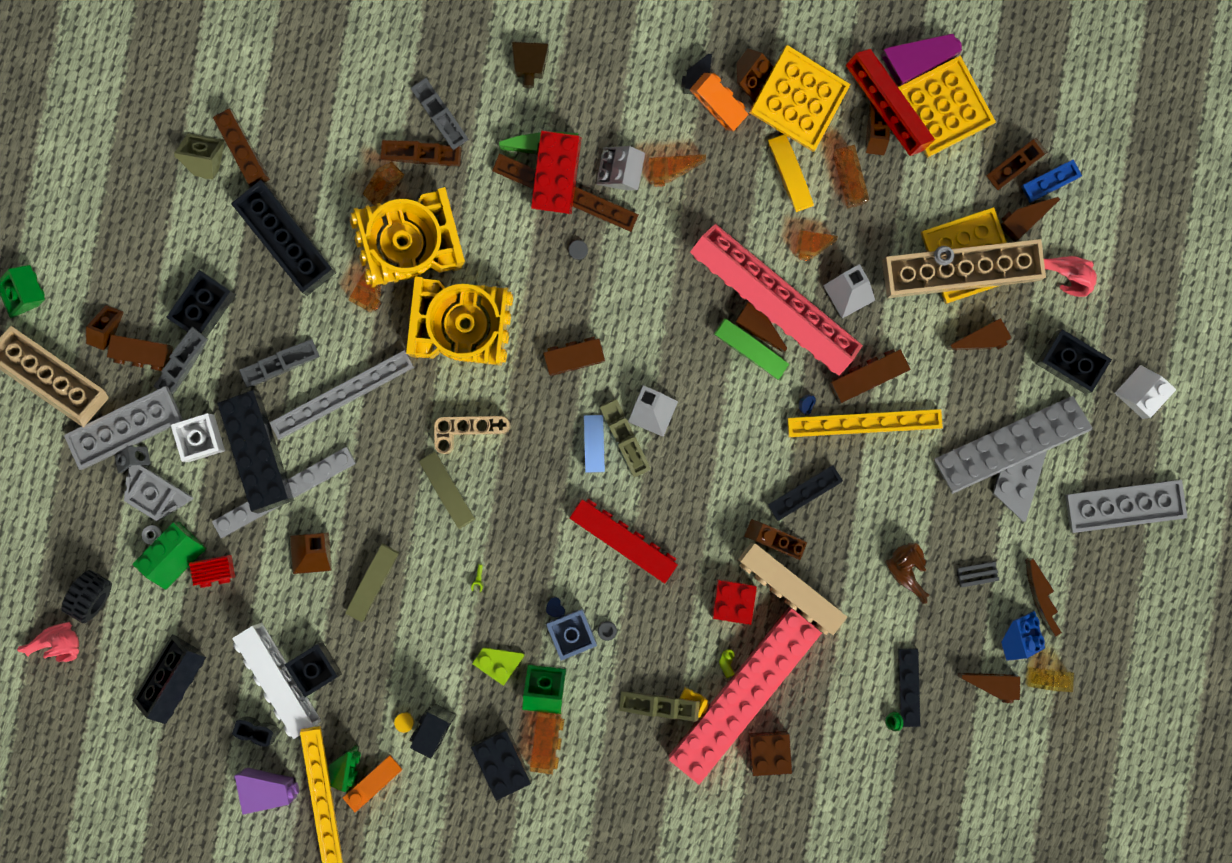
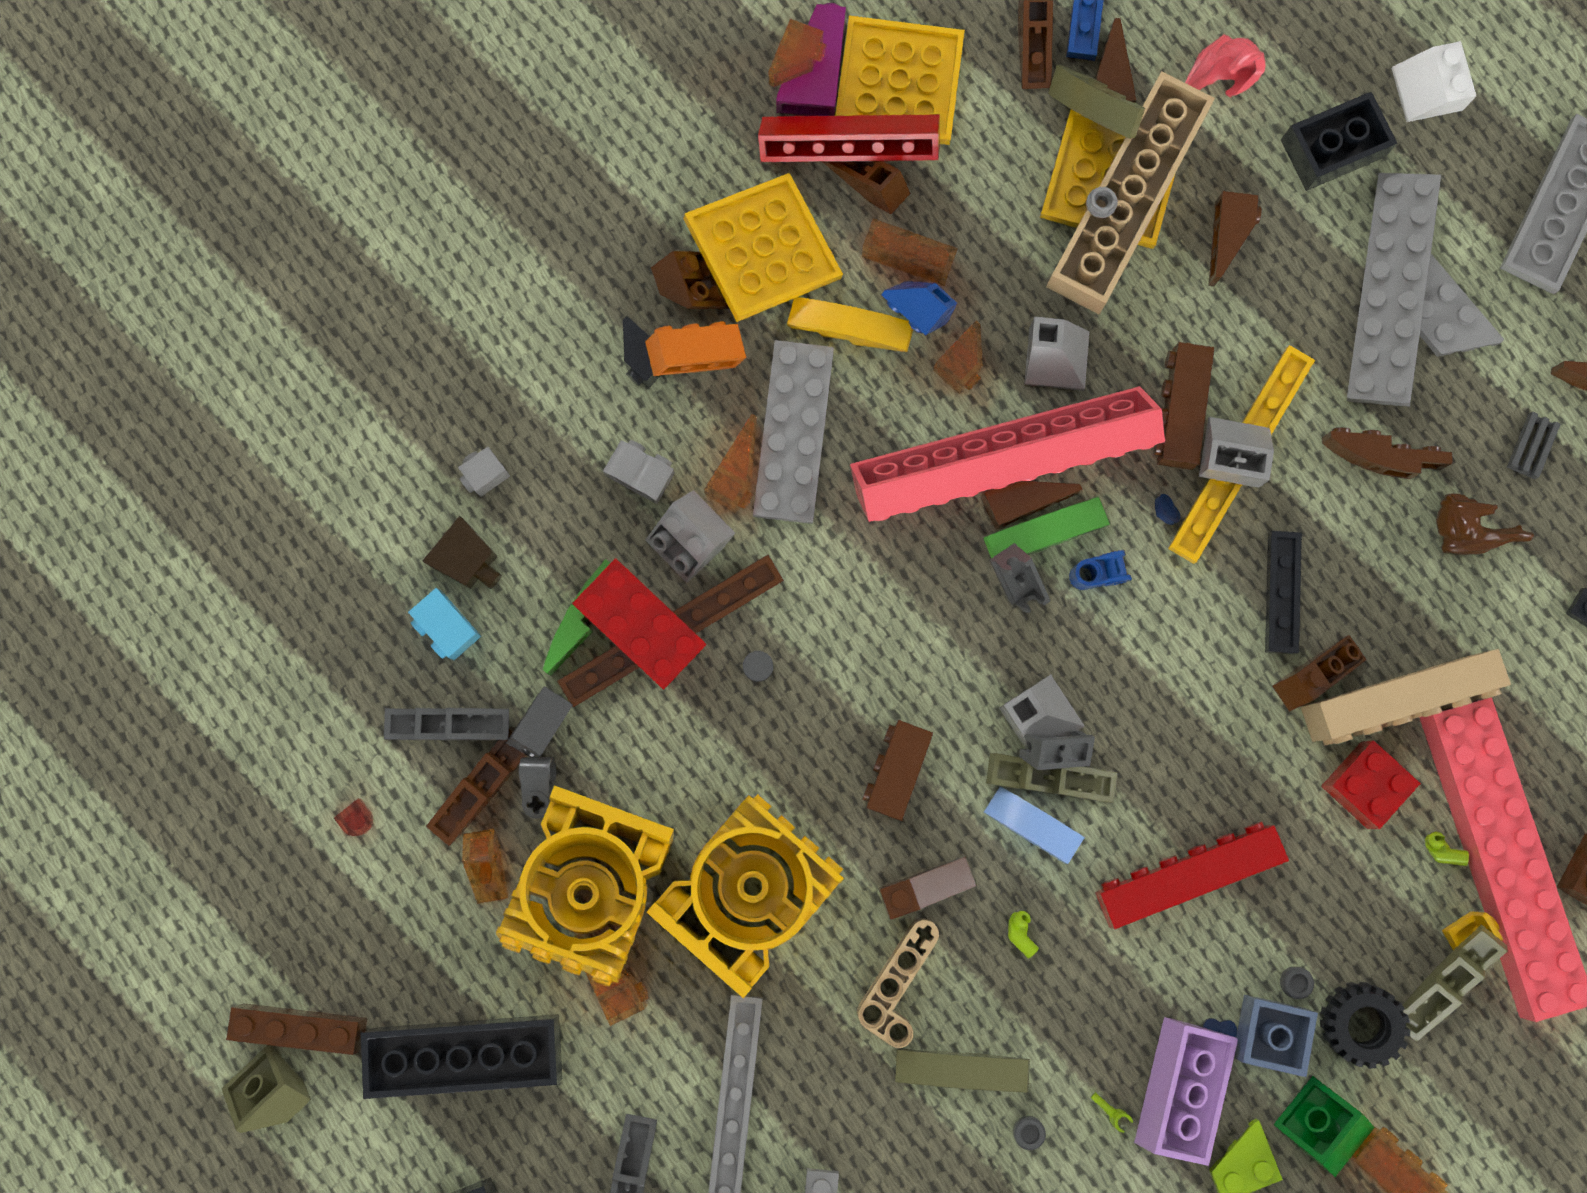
camera: 60 degrees left, 5 degrees down
(361, 103) = (355, 819): none -> clear red tile
(439, 545) = (1029, 1132): none -> dark grey tile
(443, 177) = (536, 779): none -> dark grey piece
(472, 159) = (539, 723): none -> dark grey hinge
(488, 76) = (443, 624): none -> medium azure brick
(513, 608) = (1186, 1092): none -> lavender slope
(525, 411) = (926, 888): none -> slope
(535, 473) = (1018, 933): none -> lime arm
(579, 39) = (482, 472): none -> light grey brick
(593, 683) = (1384, 1043): none -> black tyre
(635, 118) = (639, 471): none -> light grey brick
(639, 430) = (1059, 751): none -> dark grey hinge
(713, 183) = (793, 432): none -> light grey plate
(715, 349) = (1019, 577): none -> dark grey hinge
(751, 392) = (1105, 571): none -> blue piece
(824, 201) = (922, 304): none -> blue slope
(861, 417) = (1237, 452): none -> light grey slope
(913, 490) = (1377, 454): none -> reddish brown slope
(915, 41) = (797, 53): none -> clear orange slope
(1001, 216) = (1096, 101): none -> olive slope

